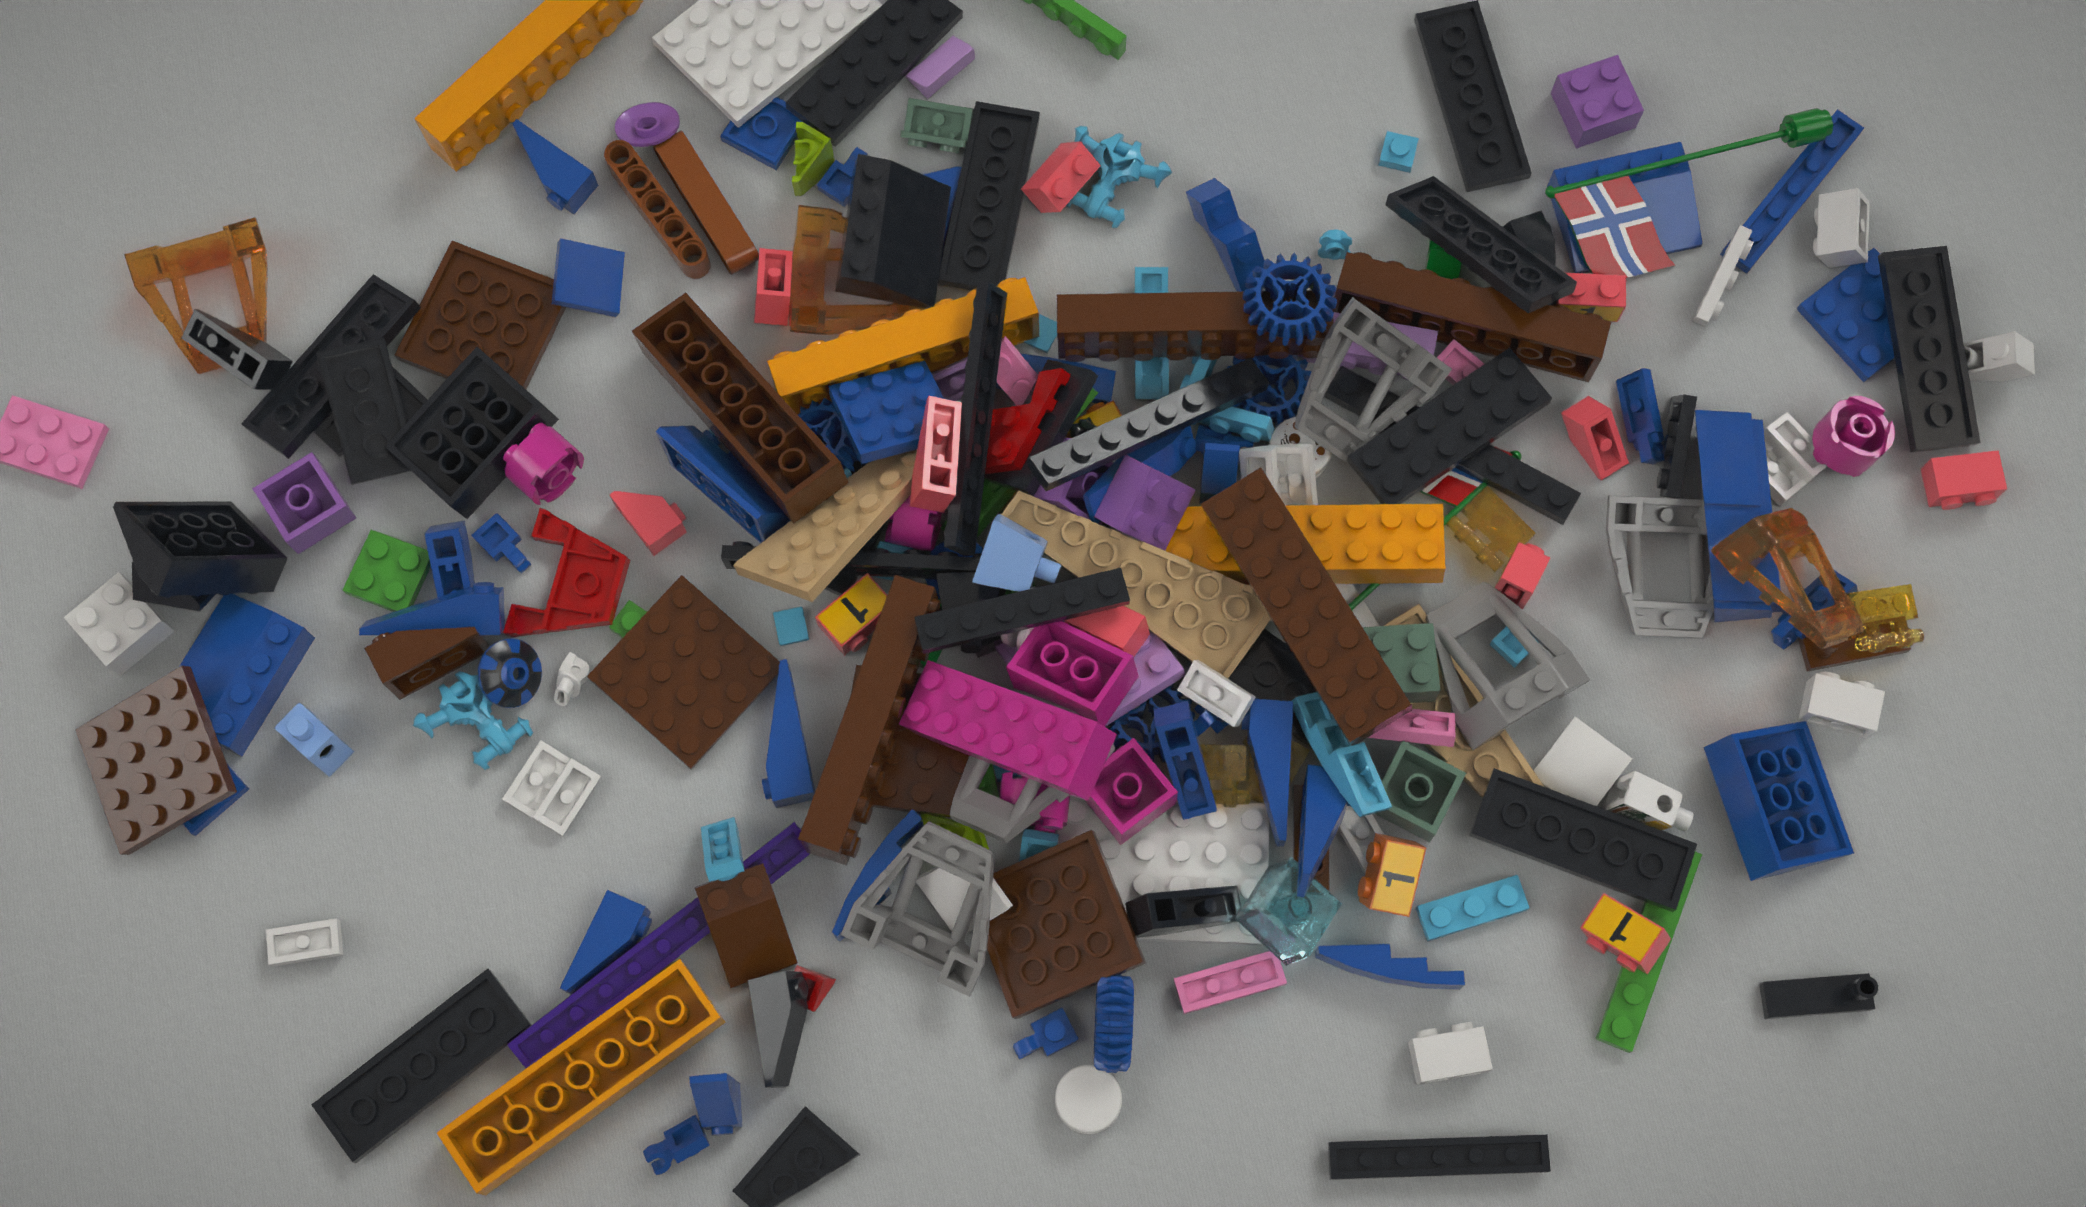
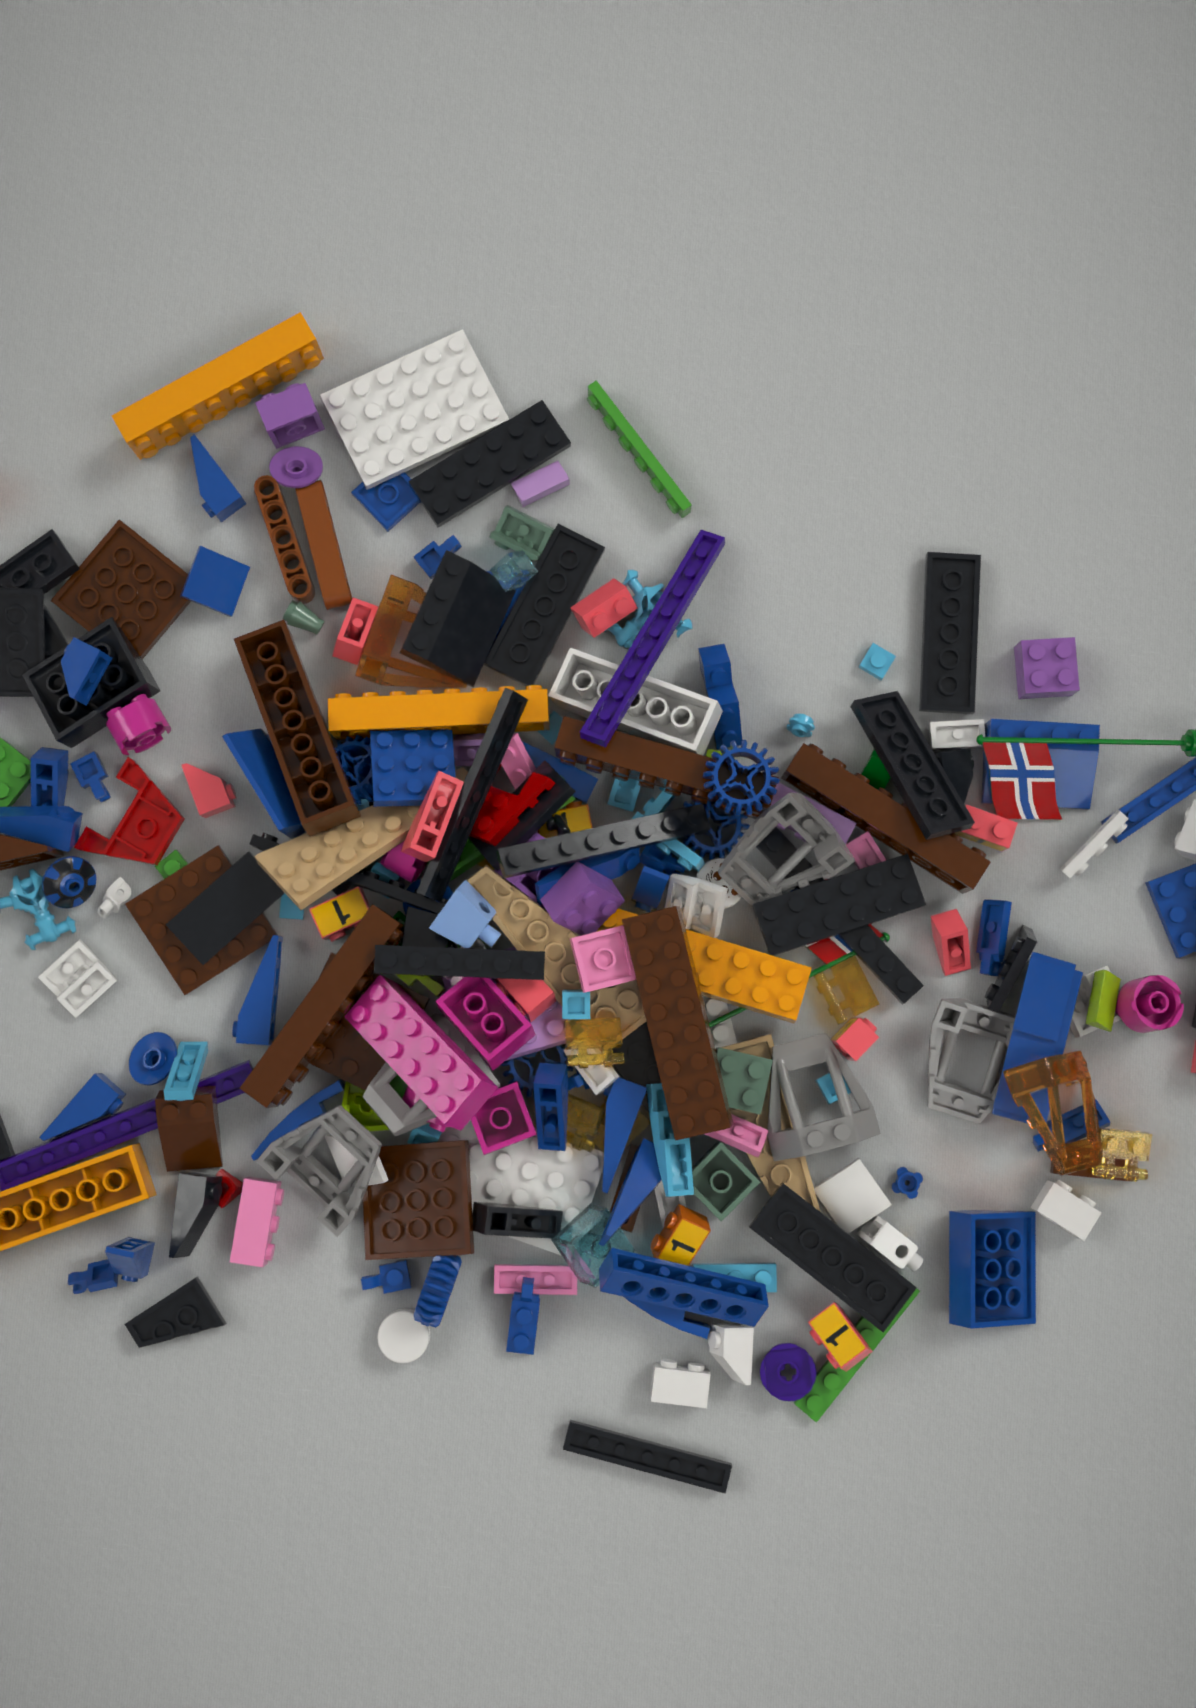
camera: 15 degrees right, 10 degrees up
(462, 409) = (83, 669): none -> blue slope
(624, 66) = (289, 415): none -> medium lavender brick
(673, 854) = (152, 1058): none -> blue dish
(706, 291) = (302, 617): none -> sand green cone
(713, 644) = (225, 908): none -> black tile
(812, 158) = (414, 535): lime slope -> none
(862, 1014) = (256, 1222): none -> bright pink brick
(942, 162) = (514, 570): none -> clear light blue brick
(980, 662) = (434, 986): none -> lime slope
(1130, 188) = (652, 639): none -> dark purple plate
(1132, 261) = (656, 714): none -> white brick
(1176, 625) = (575, 1004): none -> medium azure plate
(1193, 560) = (602, 959): none -> bright pink plate
(1210, 654) = (593, 1034): none -> clear yellow plate
(1231, 1033) = (523, 1319): none -> blue hinge
(1415, 925) = (682, 1287): none -> blue brick
(1501, 992) = (733, 1349): none -> white slope
(1519, 202) = (955, 734): none -> white plate
(1583, 979) = (801, 1382): none -> dark purple plate
(1646, 723) = (911, 1189): none -> blue plate
(1796, 448) = (1103, 1000): none -> lime slope
(1818, 996) = (969, 1422): black piece -> none

